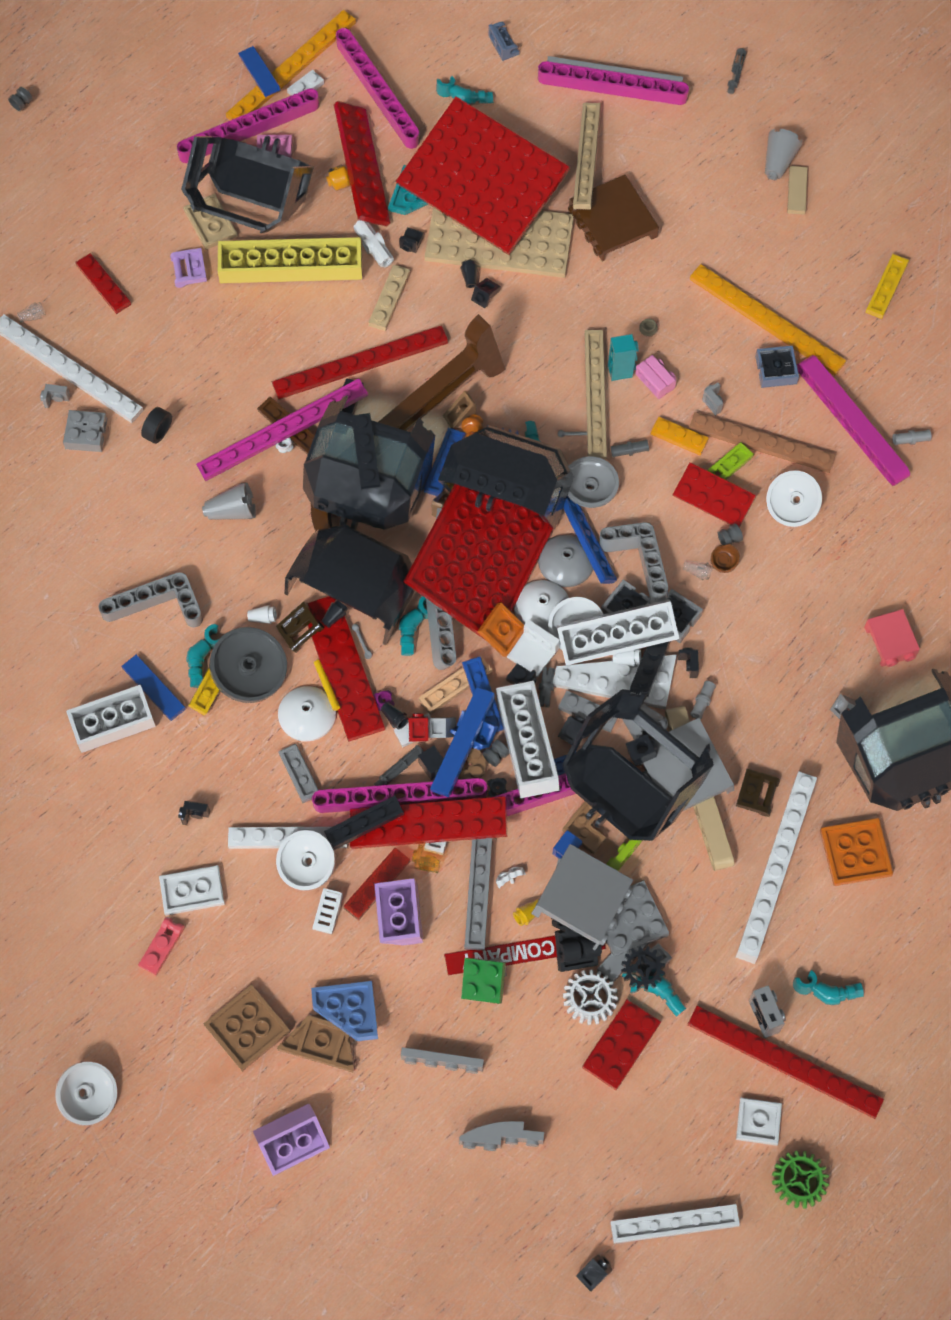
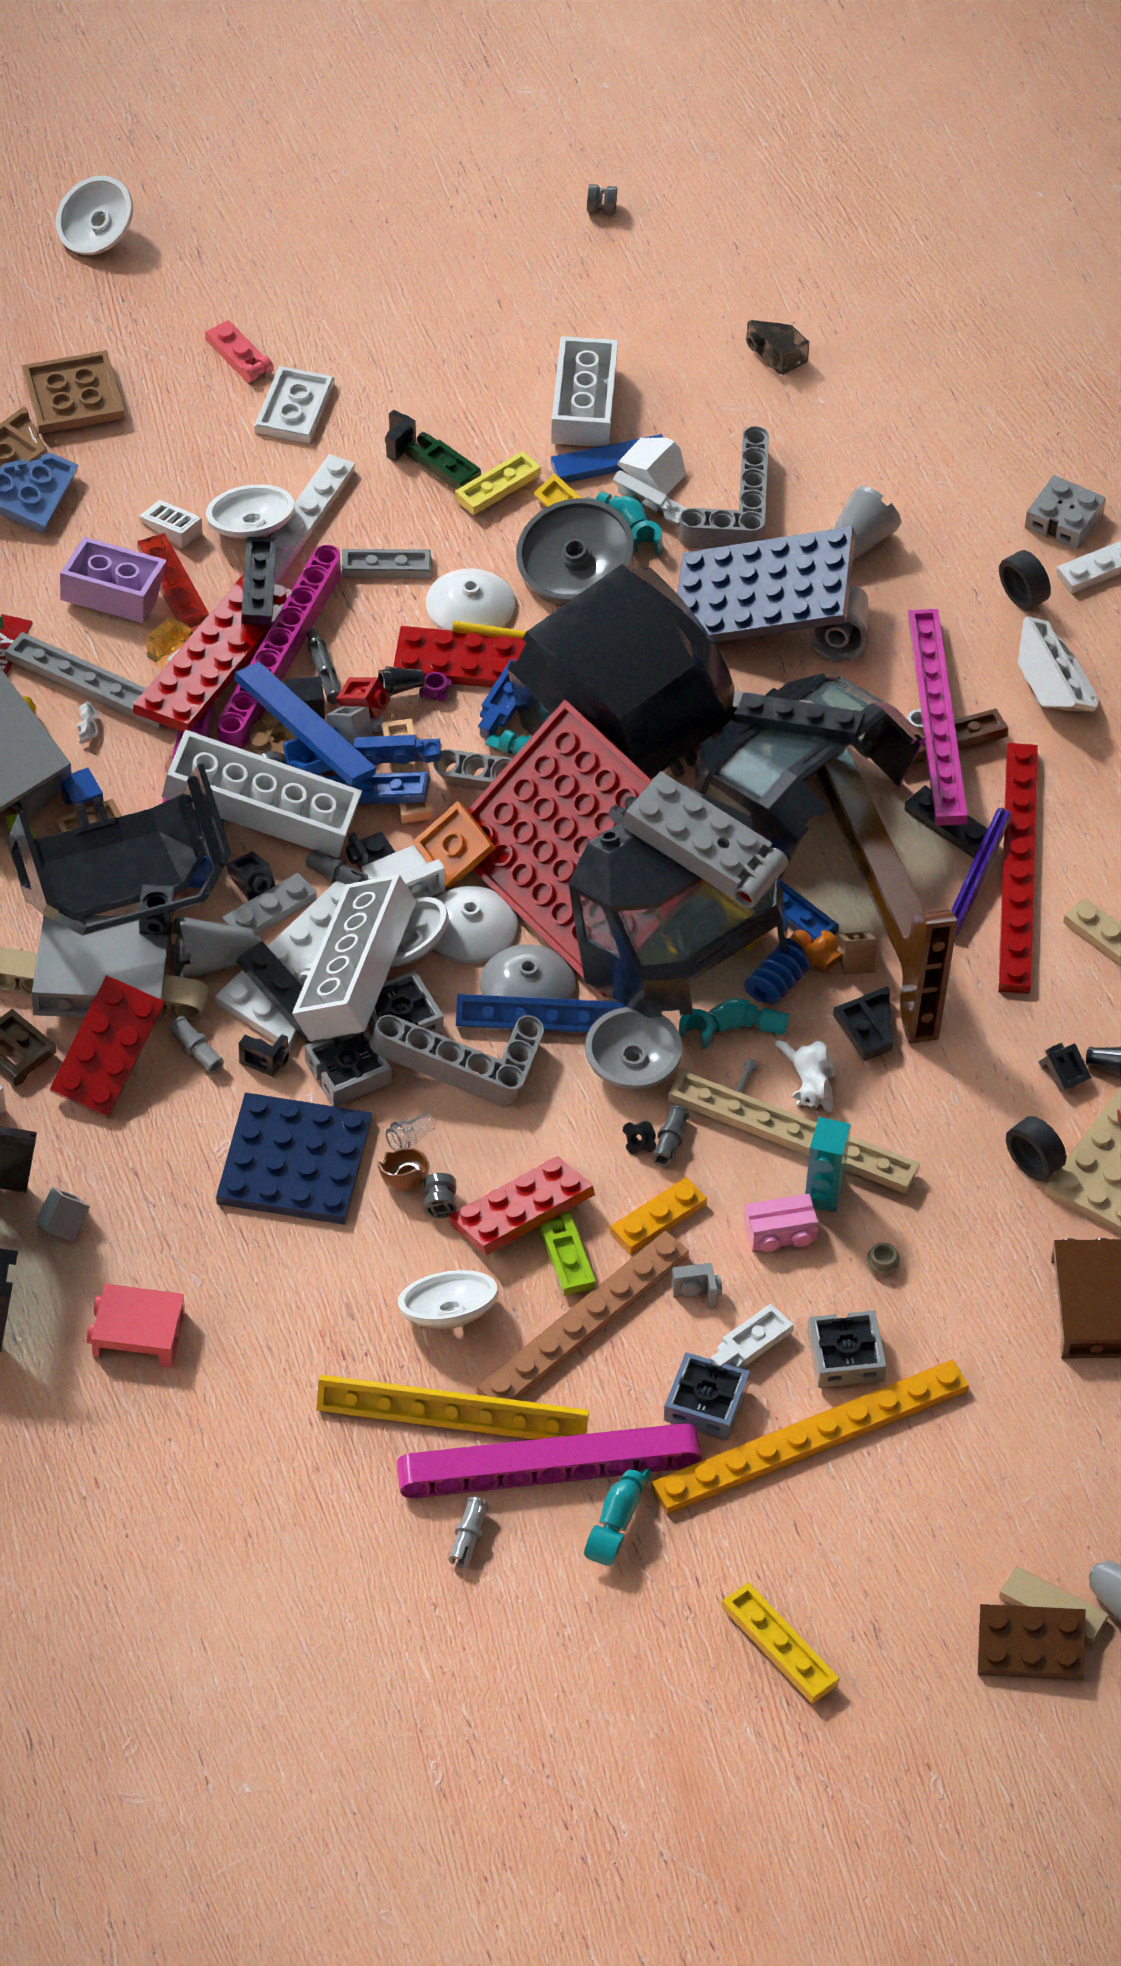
camera: 115 degrees right, 15 degrees down
(16, 631) = (778, 345): none -> clear smoke slope
(150, 658) = (655, 463): none -> white slope
(155, 525) = (869, 518): none -> light grey cone
(179, 648) = (651, 498): none -> white hinge
(203, 776) = (442, 460): none -> dark green hinge
(205, 738) = (497, 482): none -> light yellow plate
(220, 385) = (1053, 669): none -> white wedge
(232, 549) = (770, 584): none -> plate
(376, 654) = (498, 705): none -> blue hinge
(378, 375) = (980, 866): none -> dark purple axle
(453, 685) = (398, 749): none -> blue hinge
(494, 447) = (705, 840): none -> light grey hinge
(506, 388) = (867, 1023): none -> black wing
(550, 279) = (1036, 1148): none -> black tyre
(552, 398) = (814, 1069): none -> white animal
(639, 460) = (647, 1133): none -> black plate
(714, 318) = (846, 1349): none -> piece
(731, 363) = (753, 1338): none -> white hinge
(739, 734) = (107, 1046): none -> red plate
(744, 619) = (294, 1158): none -> dark blue plate
(824, 189) = (1031, 1642): none -> reddish brown plate
(854, 481) = (448, 1409): none -> yellow plate
(867, 373) = (616, 1514): none -> teal piece

